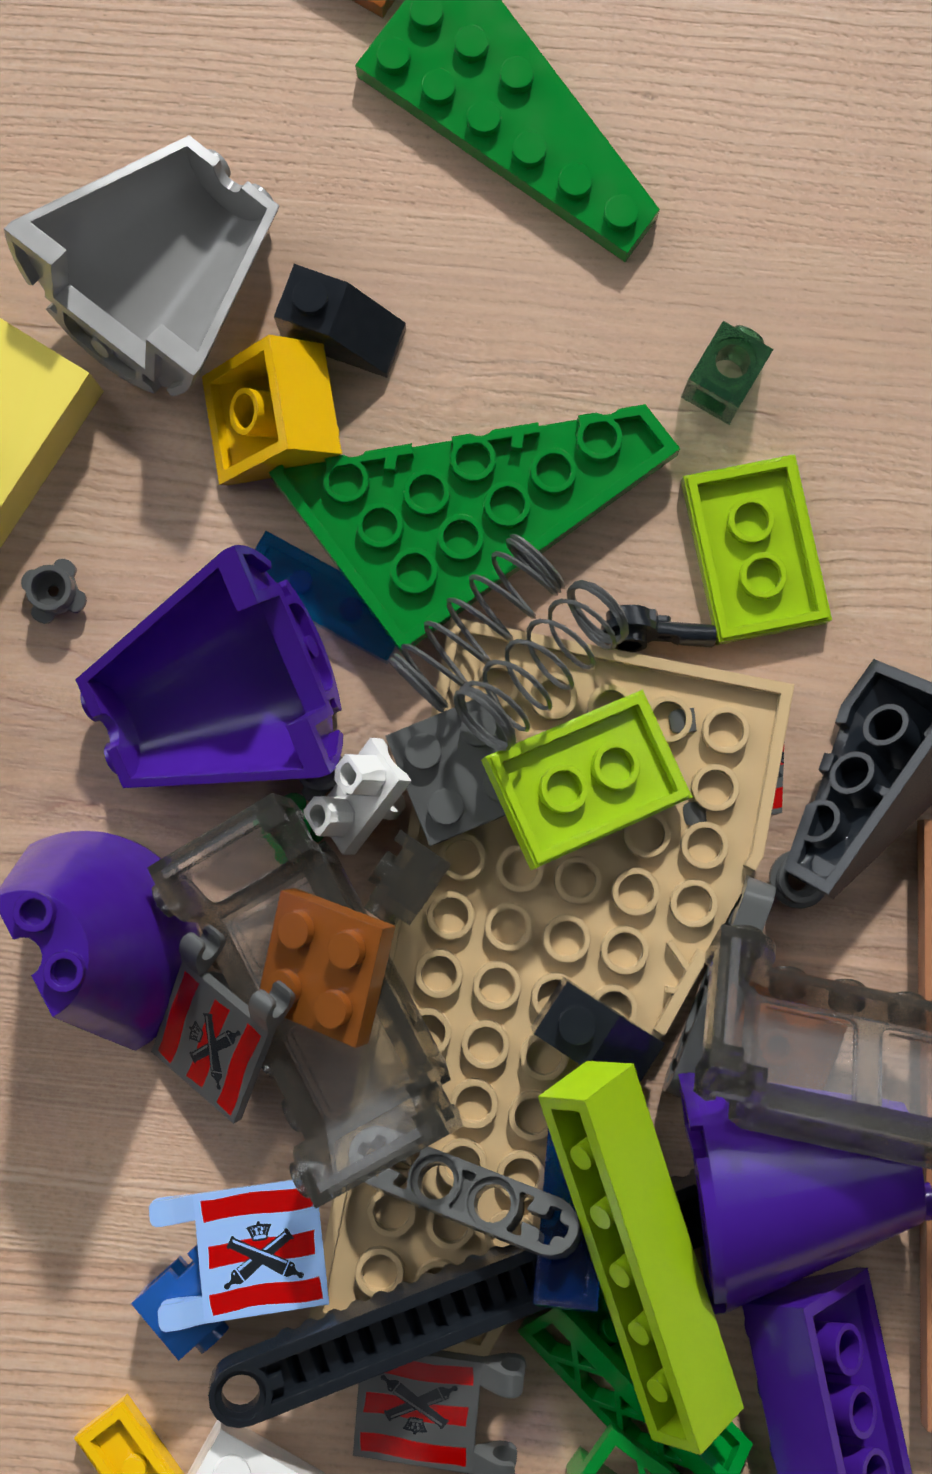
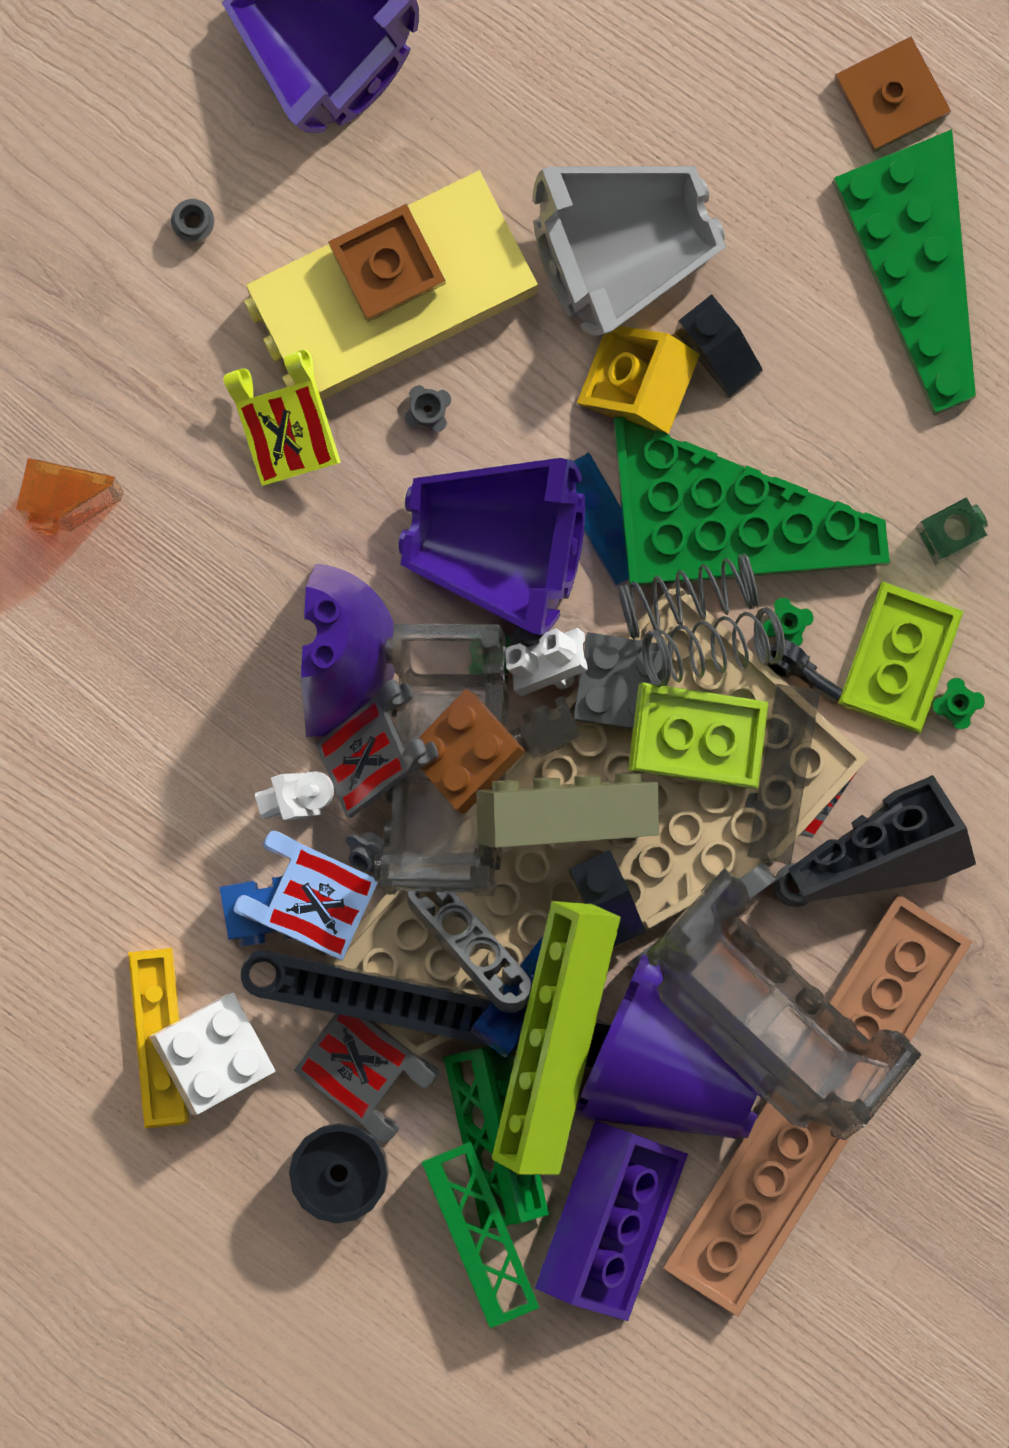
camera: 20 degrees right, 0 degrees up
(156, 1140) = (296, 796): none -> white hips
(277, 1145) = (364, 849): none -> dark grey plate
(488, 969) = (567, 812): none -> olive brick
(616, 573) = (799, 617): none -> green plate
(710, 763) = (783, 774): none -> clear smoke tile
(842, 573) = (958, 691): none -> green plate

